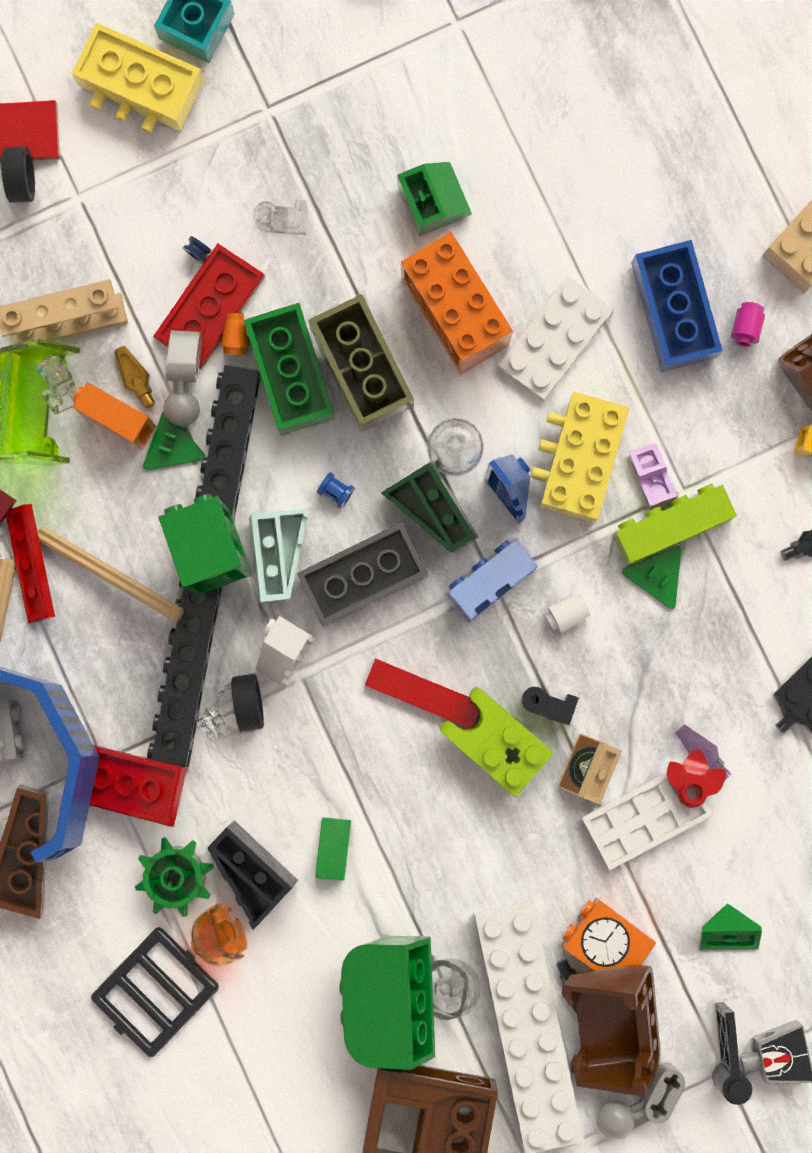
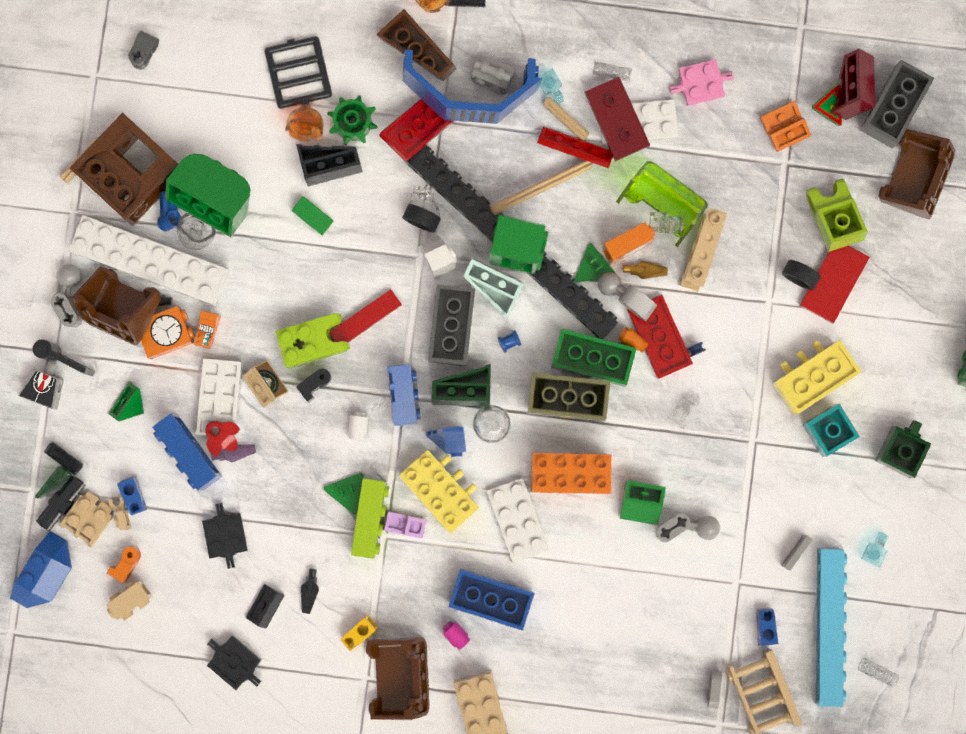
camera: 120 degrees right, 0 degrees up
(413, 98) = (706, 527): none -> light grey beam
(449, 1044) = (169, 214): none -> blue piece
(569, 890) = (206, 329): none -> orange leg
(744, 810) = (187, 452): none -> blue brick

